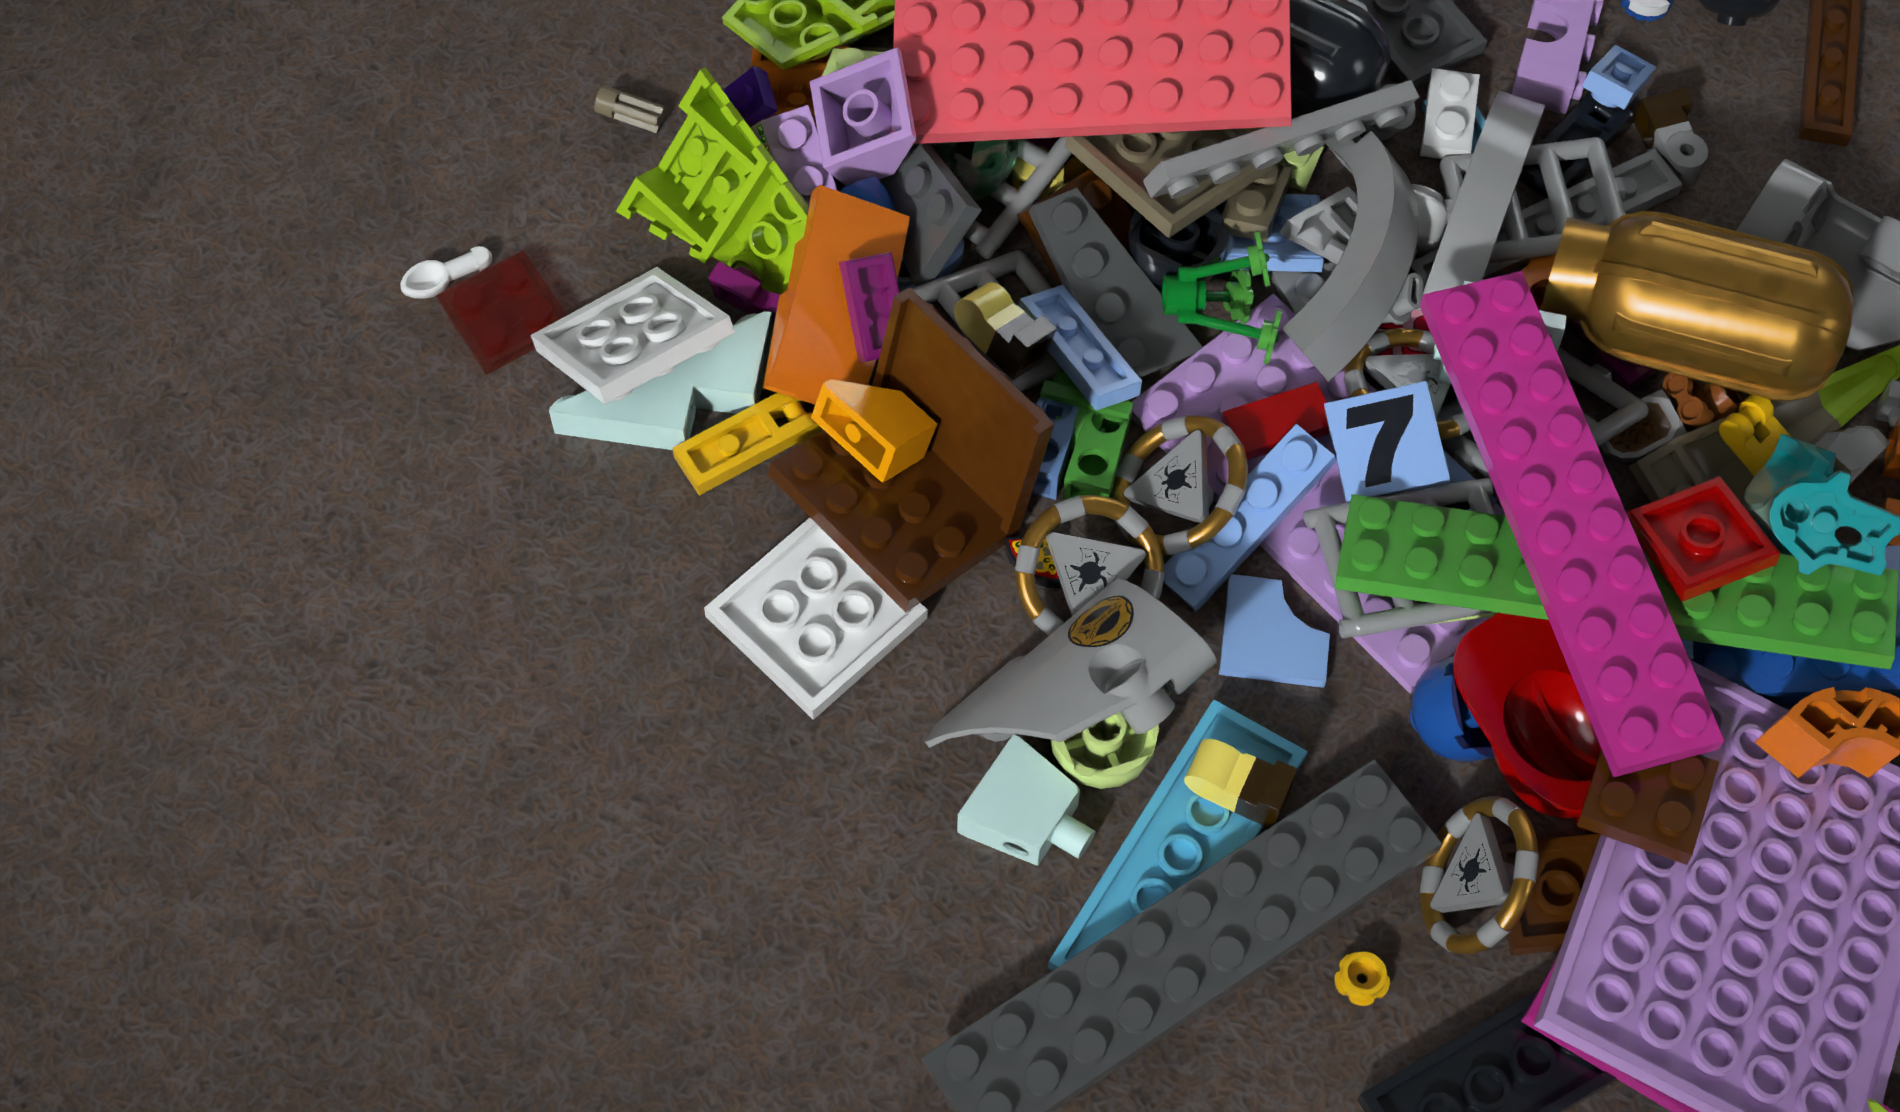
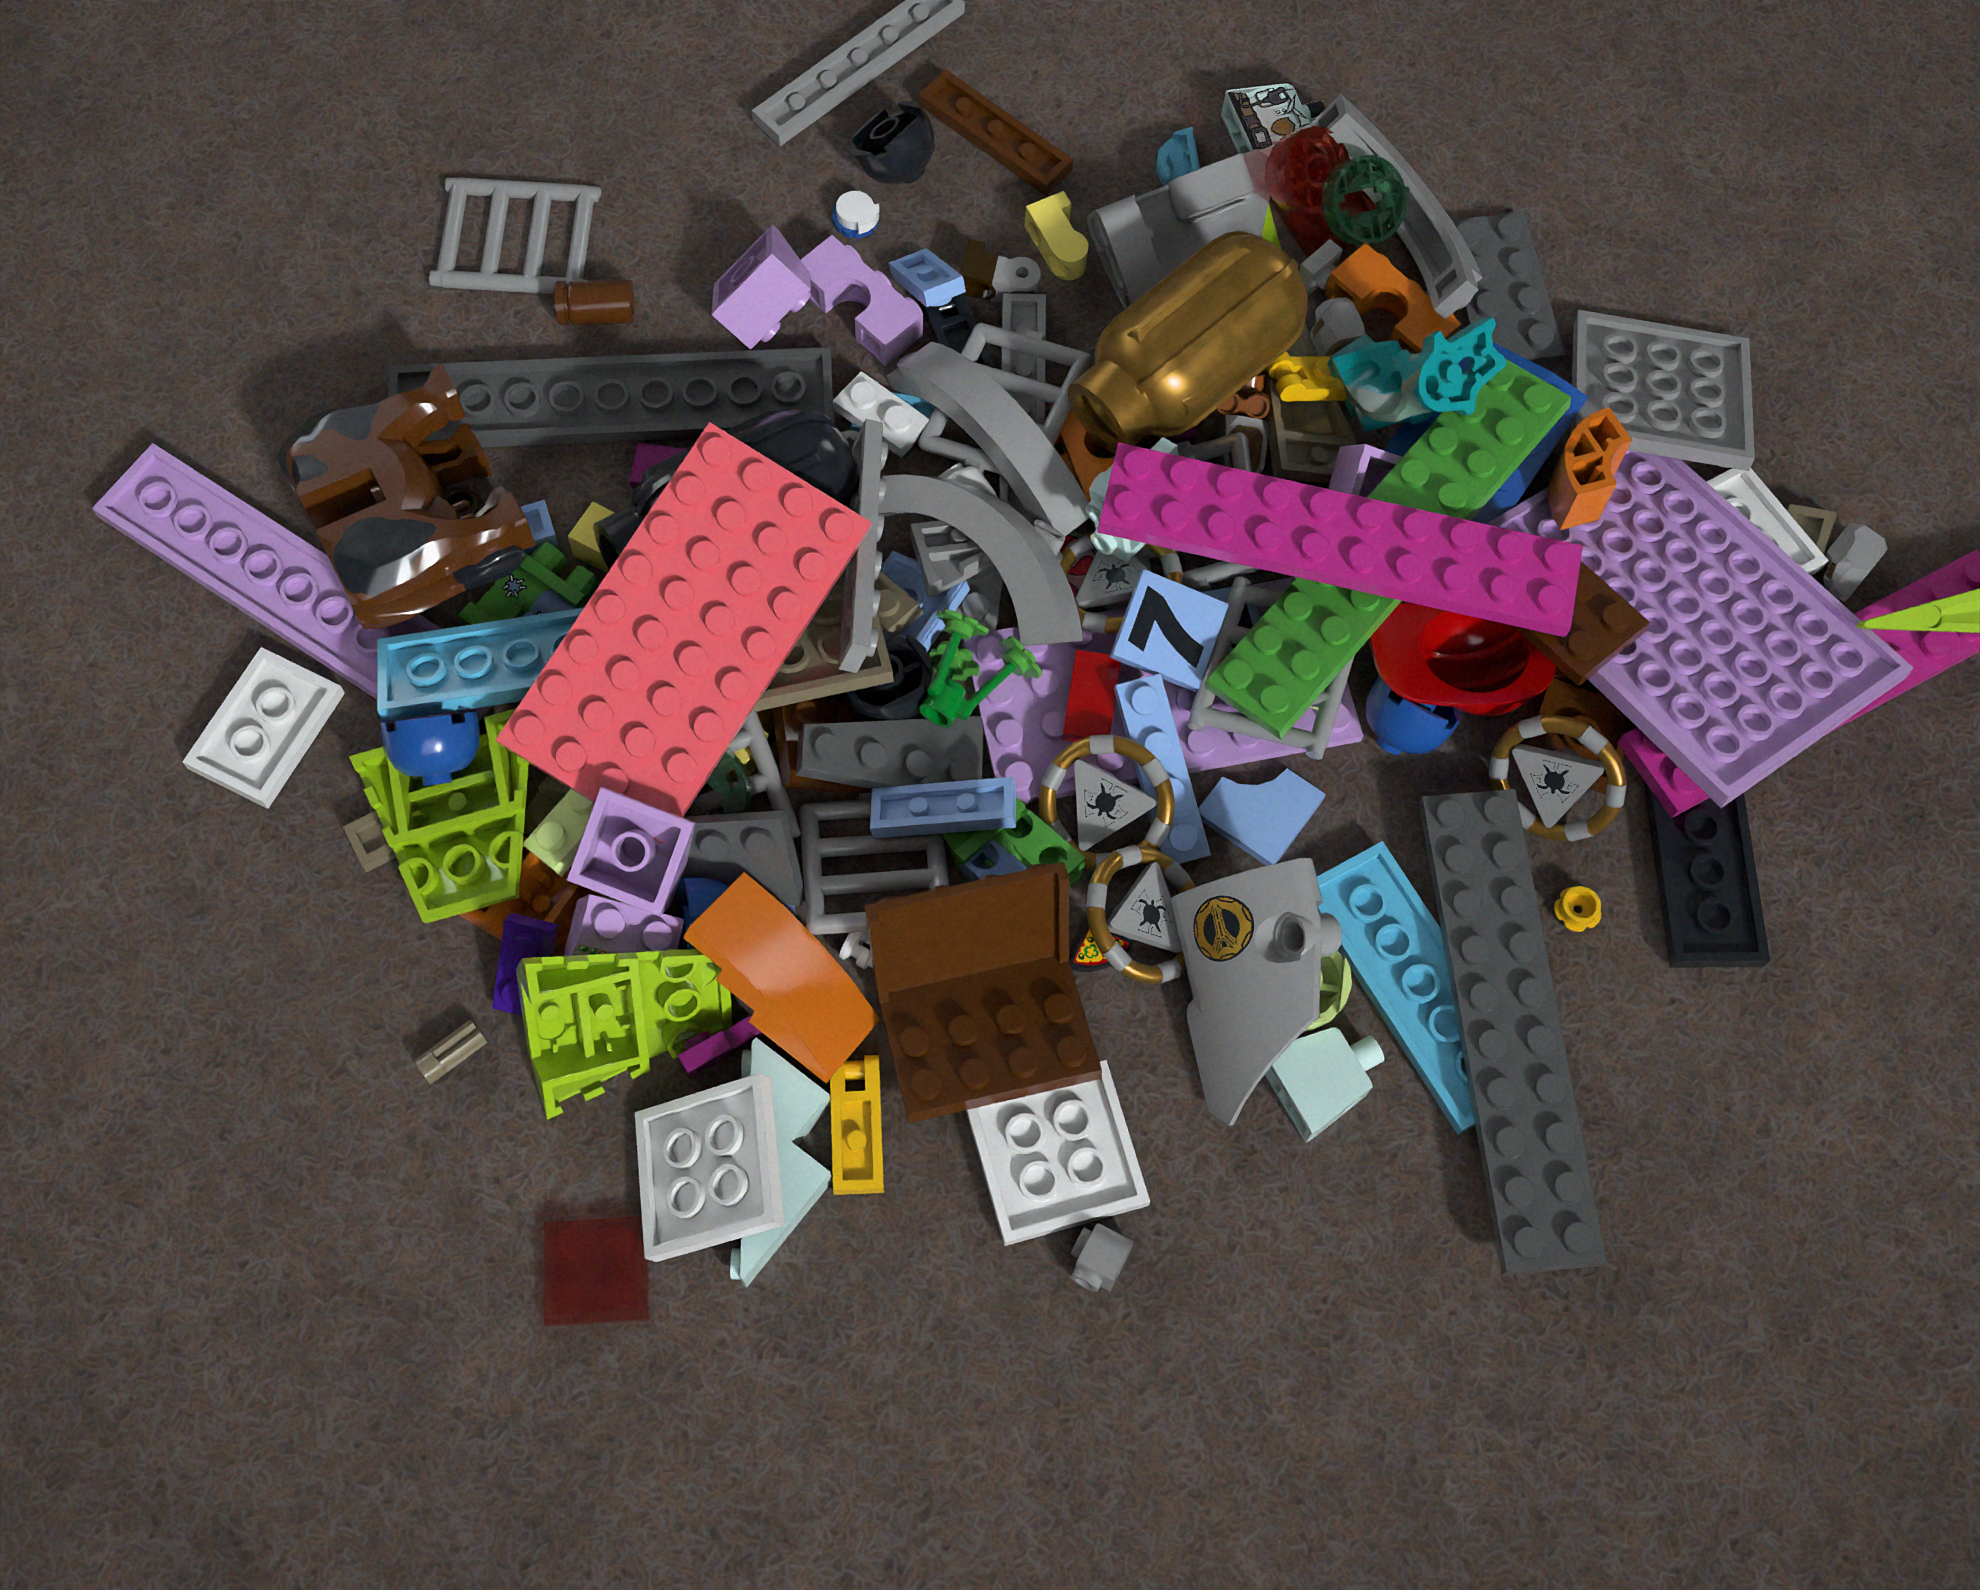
camera: 65 degrees left, 5 degrees up
(433, 277) = (519, 1319): white piece -> none
(737, 696) = (1100, 1257): none -> light grey plate
(869, 294) = (817, 947): magenta plate -> none
(874, 425) = (928, 1009): light orange slope -> none
(1004, 329) = (896, 856): leg -> none
(1240, 781) = (1396, 901): leg -> none
(1702, 538) = (1403, 460): red tile -> none
(1751, 166) = (1055, 238): none -> light yellow leg

